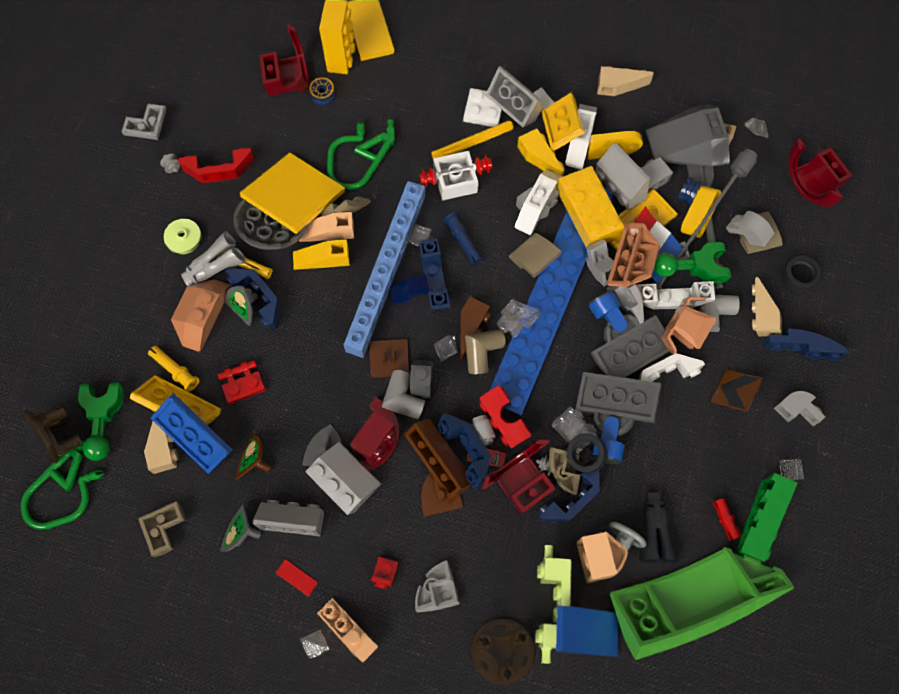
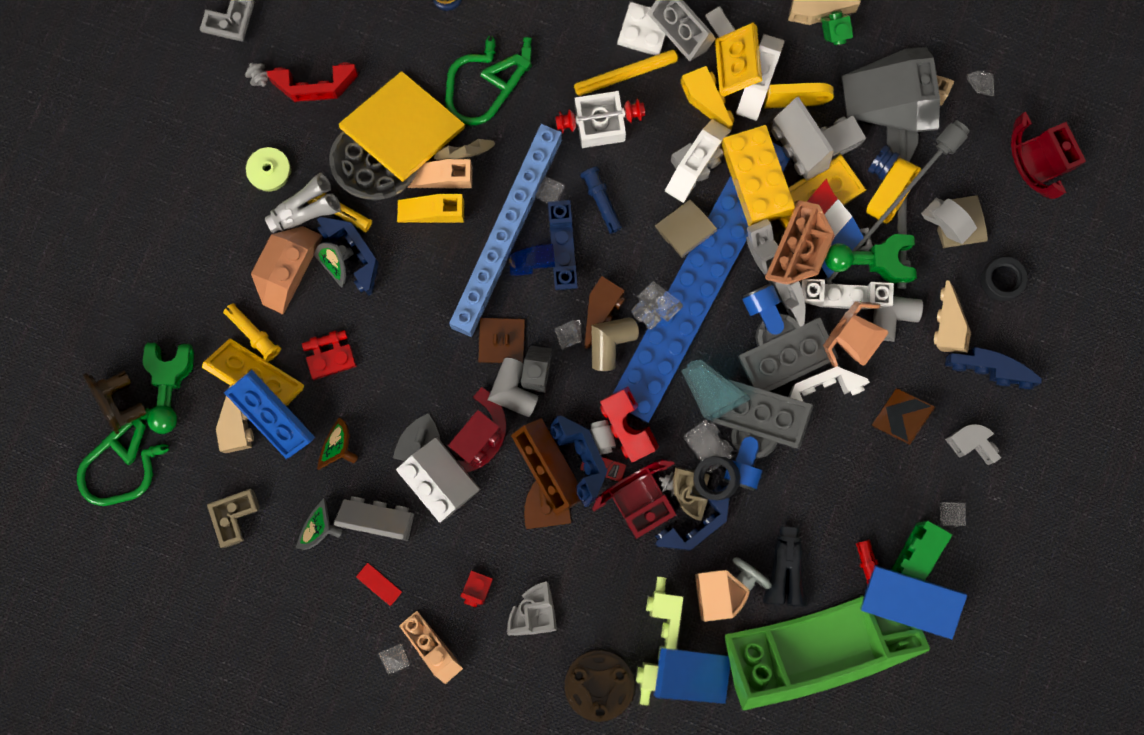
camera: 10 degrees right, 10 degrees up
(574, 381) = (712, 390): none -> clear light blue slope
(637, 93) = (837, 27): none -> green brick
(772, 546) = (913, 602): none -> blue tile

